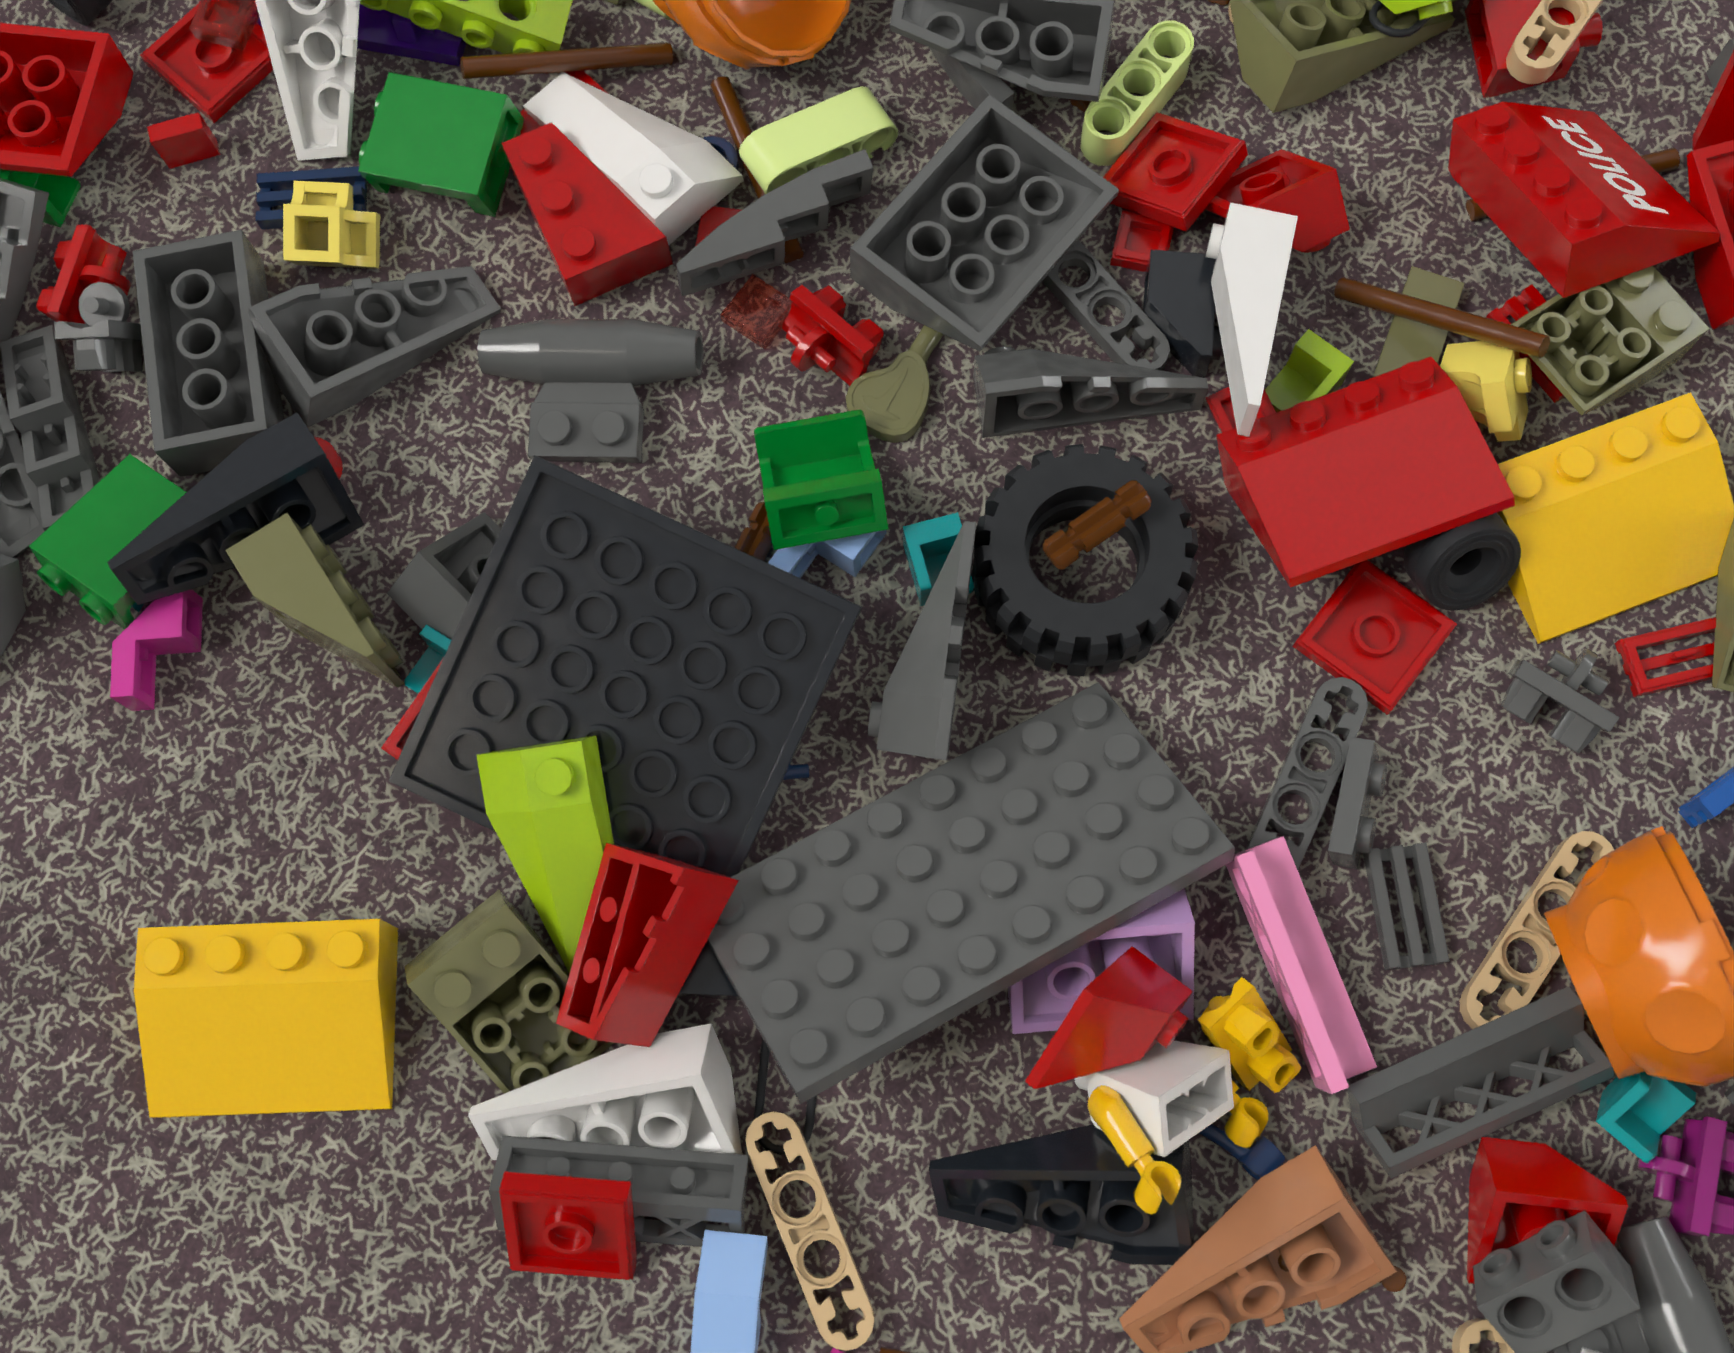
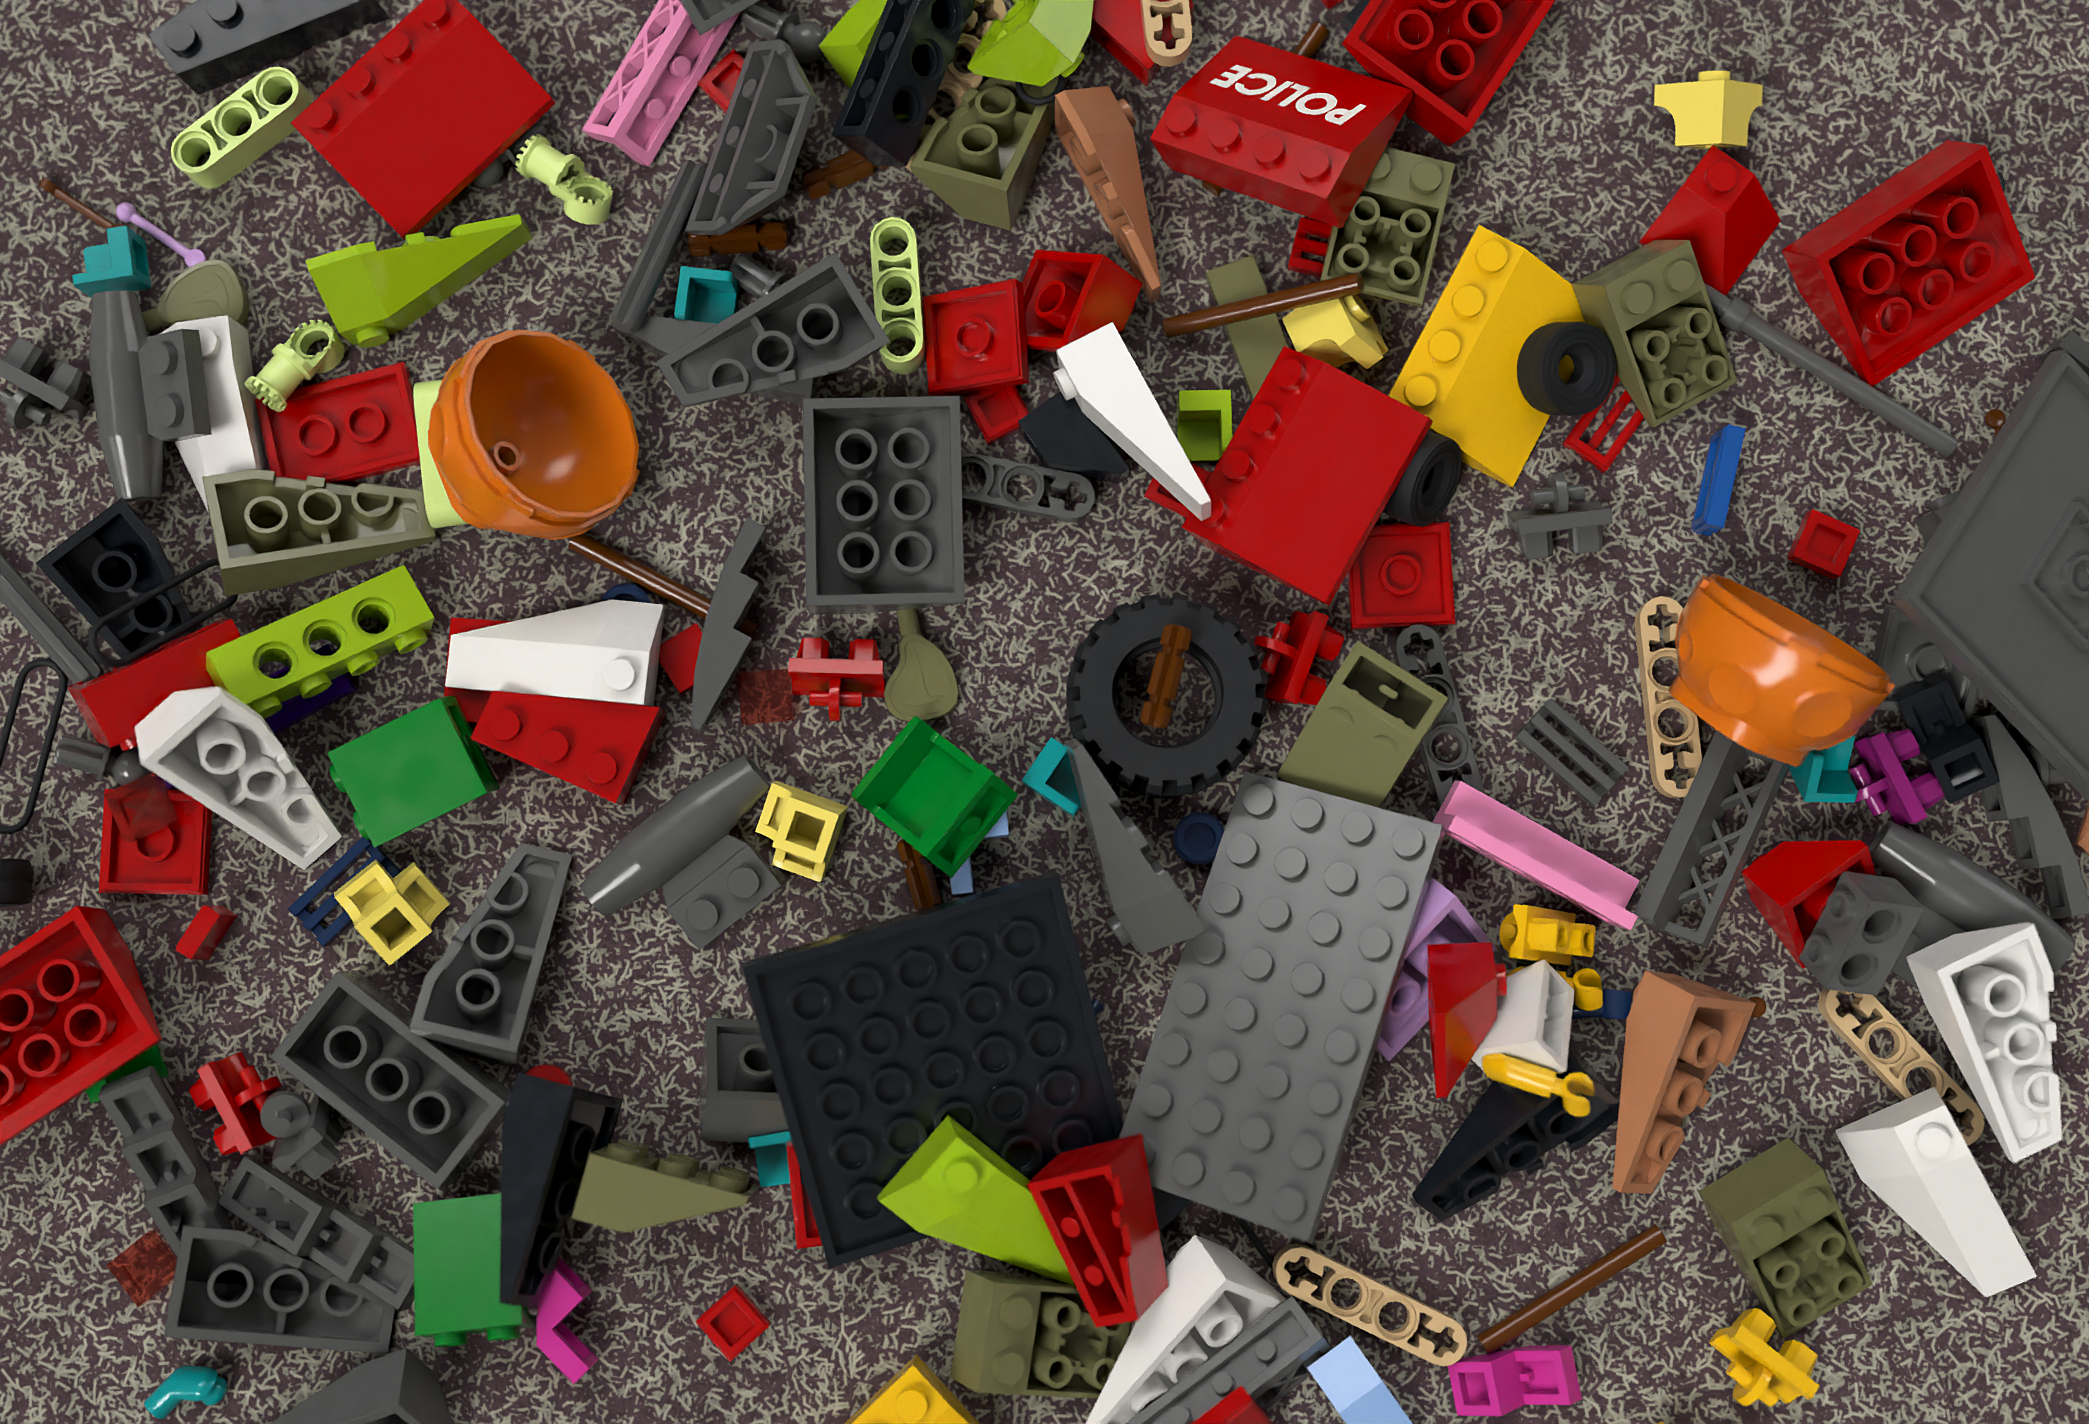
camera: 45 degrees left, 10 degrees up
(280, 770) = (733, 1322): none -> red tile
(566, 60) = (447, 624): reddish brown bar -> none
(692, 430) = (801, 828): none -> light yellow brick
(817, 137) = (697, 532): yellowish green beam -> none
(1010, 703) = (1198, 838): none -> dark blue tile
(1055, 390) = (1028, 588): dark grey wedge -> none
(1238, 722) = (1363, 730): none -> olive slope
(1248, 616) = (1291, 654): none -> red hips
(1361, 779) = (1476, 692): dark grey plate -> none
(1404, 107) = (1104, 152): none -> nougat wedge
(1705, 580) = (1592, 373): none -> black tyre

